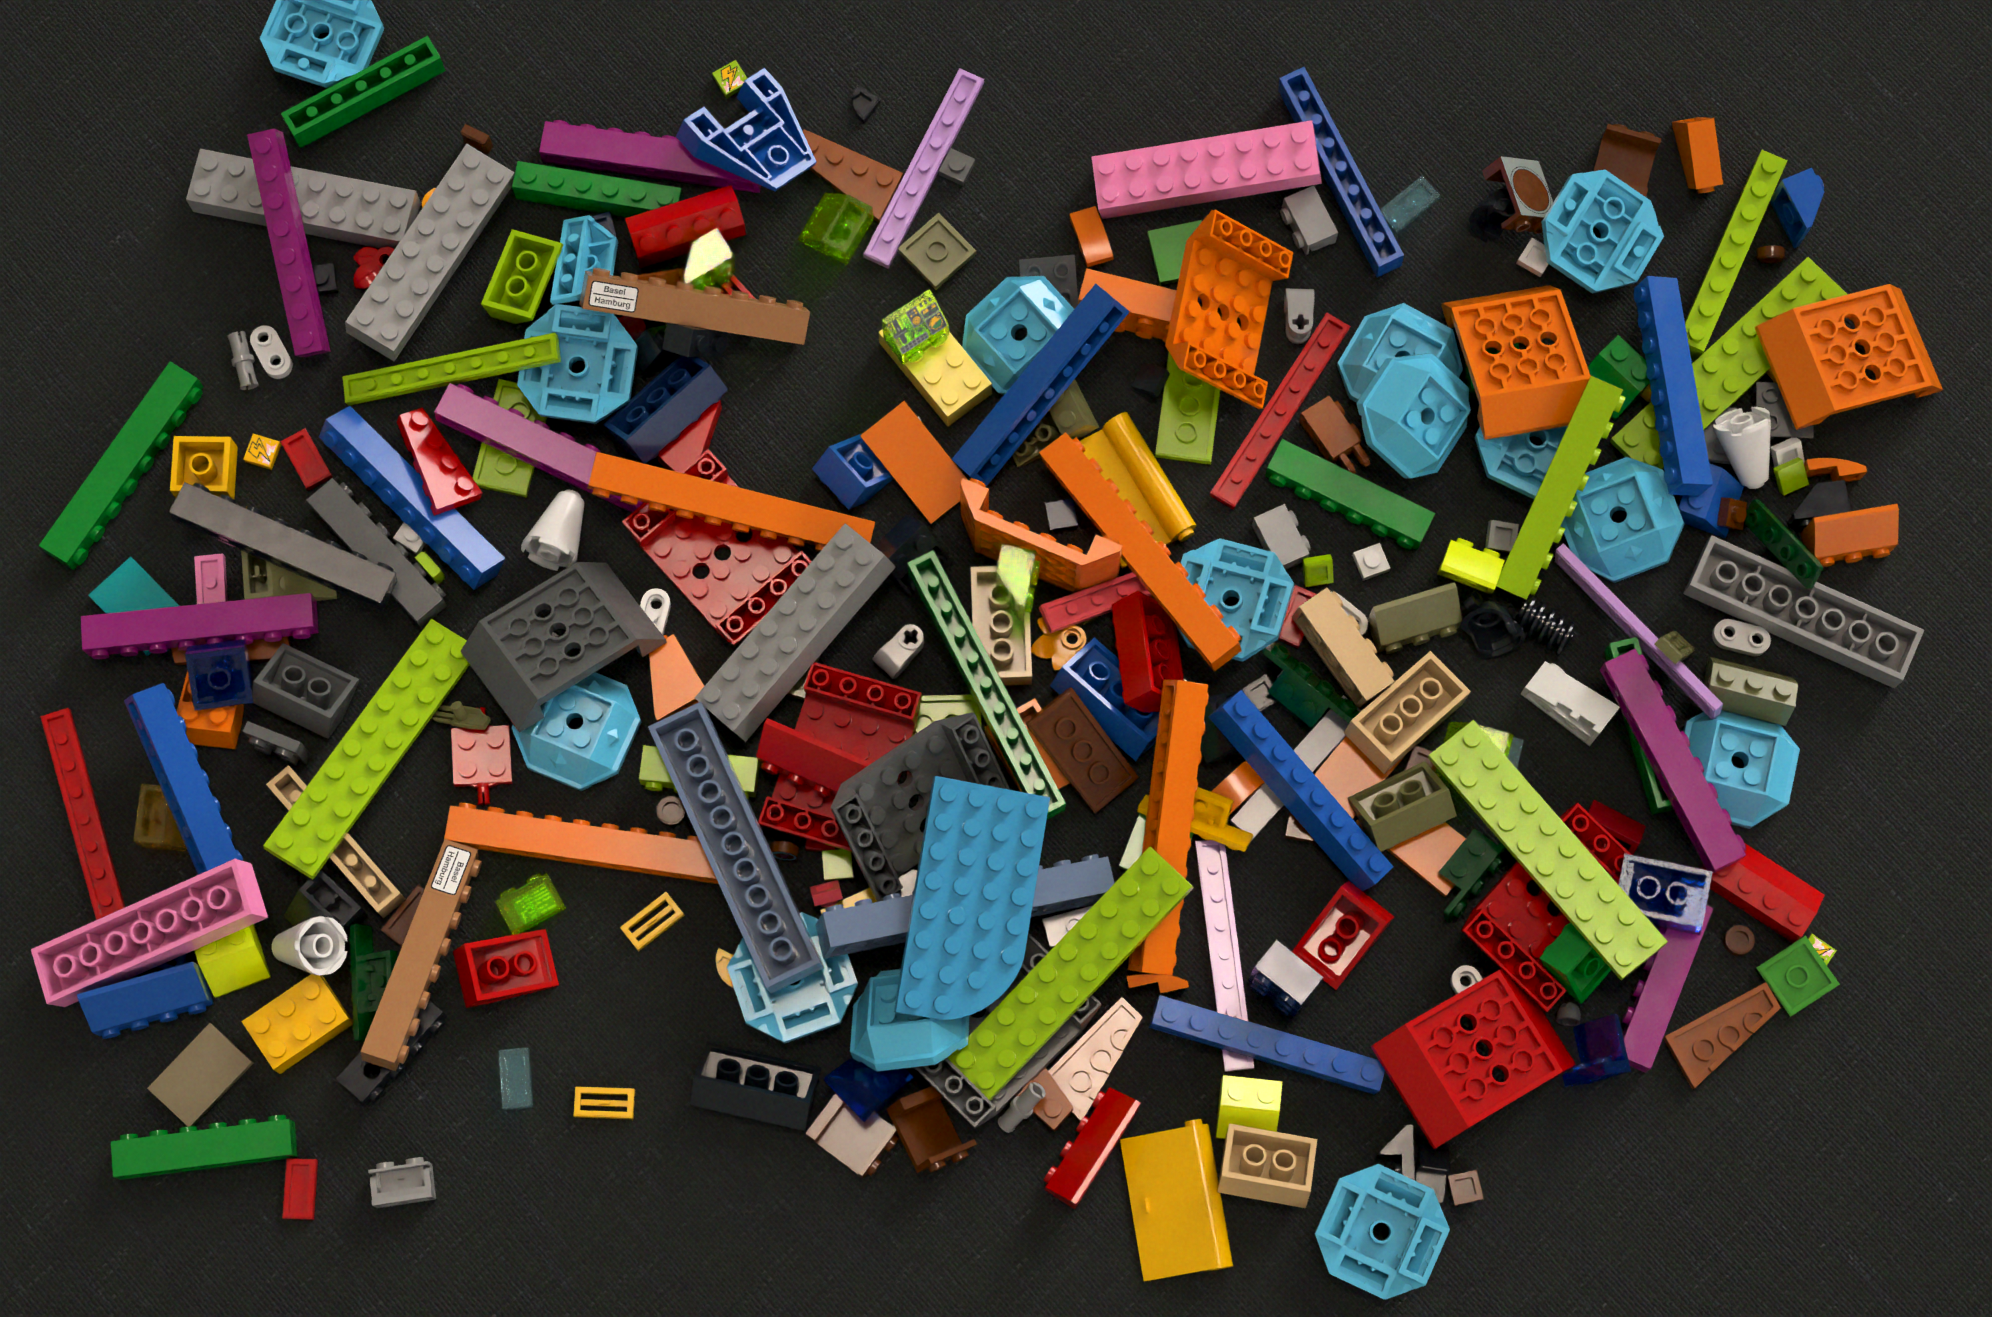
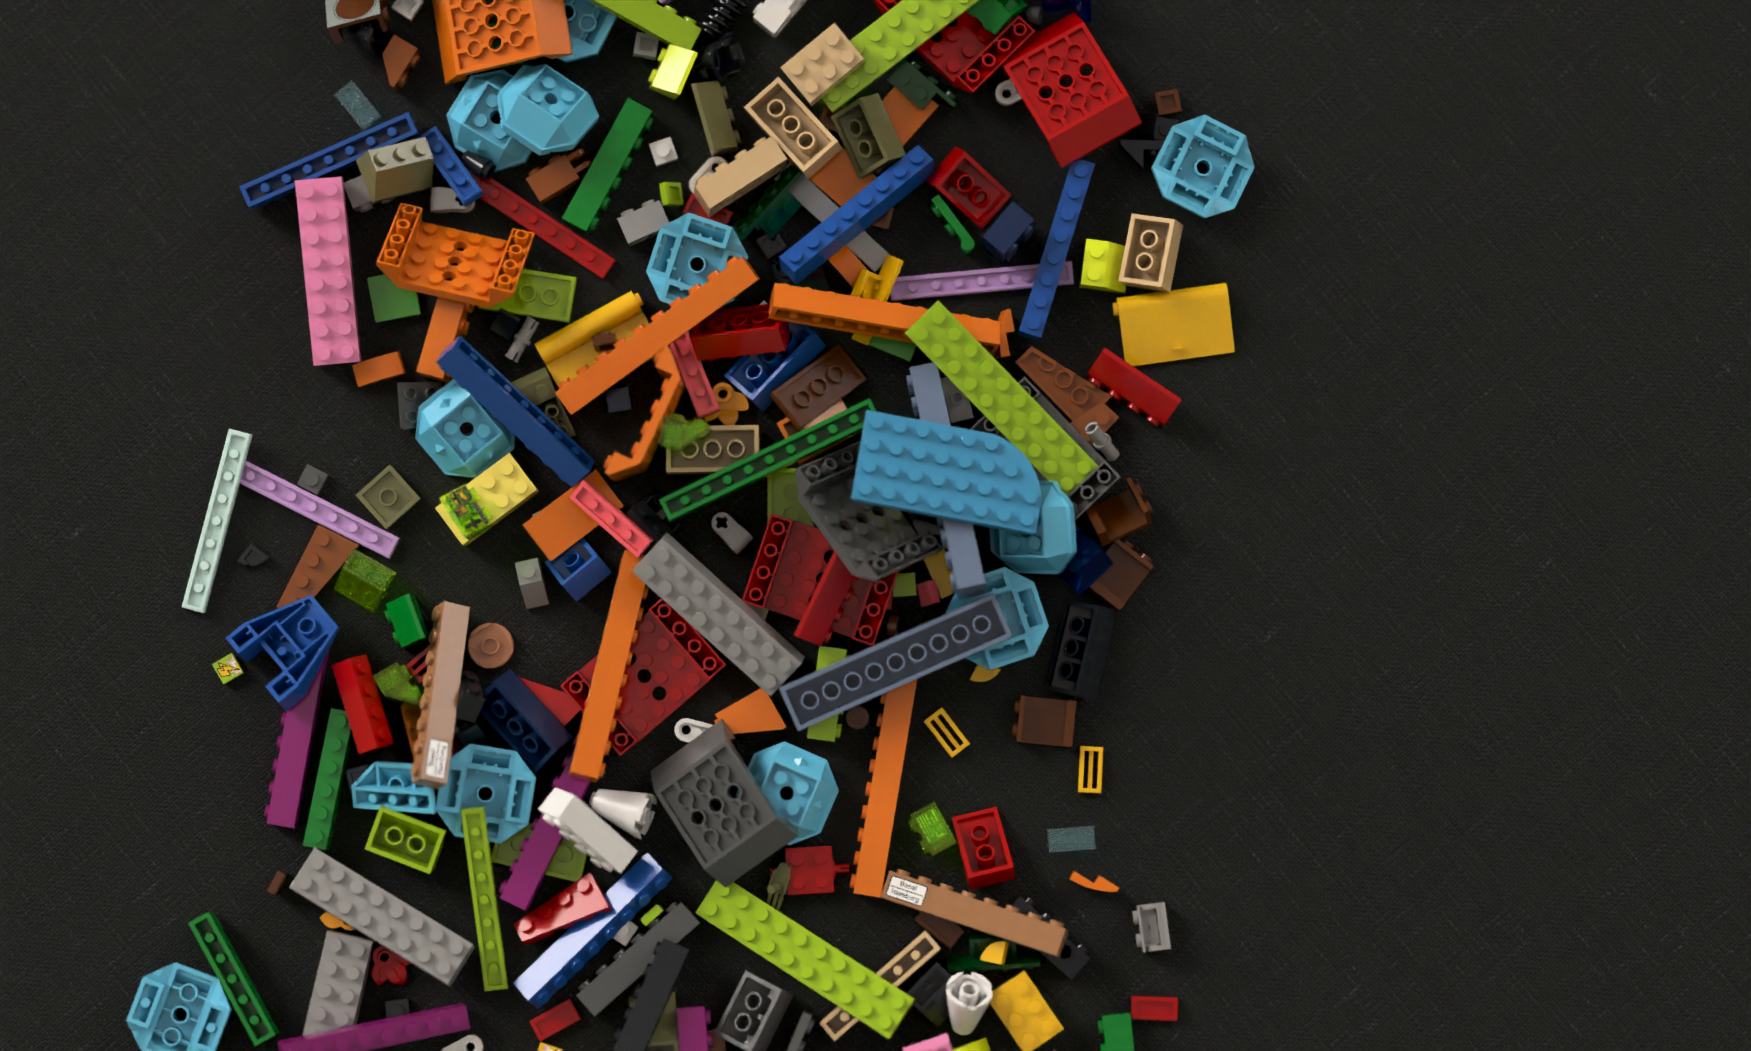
camera: 85 degrees left, 10 degrees up
(371, 982) = (995, 952): none -> yellow tile
(456, 1116) = (1099, 884): none -> orange slope
(527, 480) = (587, 831): none -> white brick
(665, 1042) = (1044, 721): none -> reddish brown panel
(759, 374) = (490, 645): none -> nougat tile
(787, 275) = (407, 621): none -> green slope
(835, 417) = (532, 583): none -> light grey slope
(905, 60) = (217, 521): none -> light aqua tile
(912, 504) = (611, 519): none -> coral tile
(1132, 400) = (522, 339): none -> light grey pin
(1132, 491) = (604, 341): none -> reddish brown plate
(1292, 916) = (952, 225): none -> green plate
(1332, 245) = (397, 169): none -> olive slope
(1339, 308) = (452, 168): none -> blue tile
(1342, 343) = (479, 165): none -> black cone
(1465, 247) = (398, 60): none -> dark orange slope
(1487, 737) = (823, 64): none -> tan brick

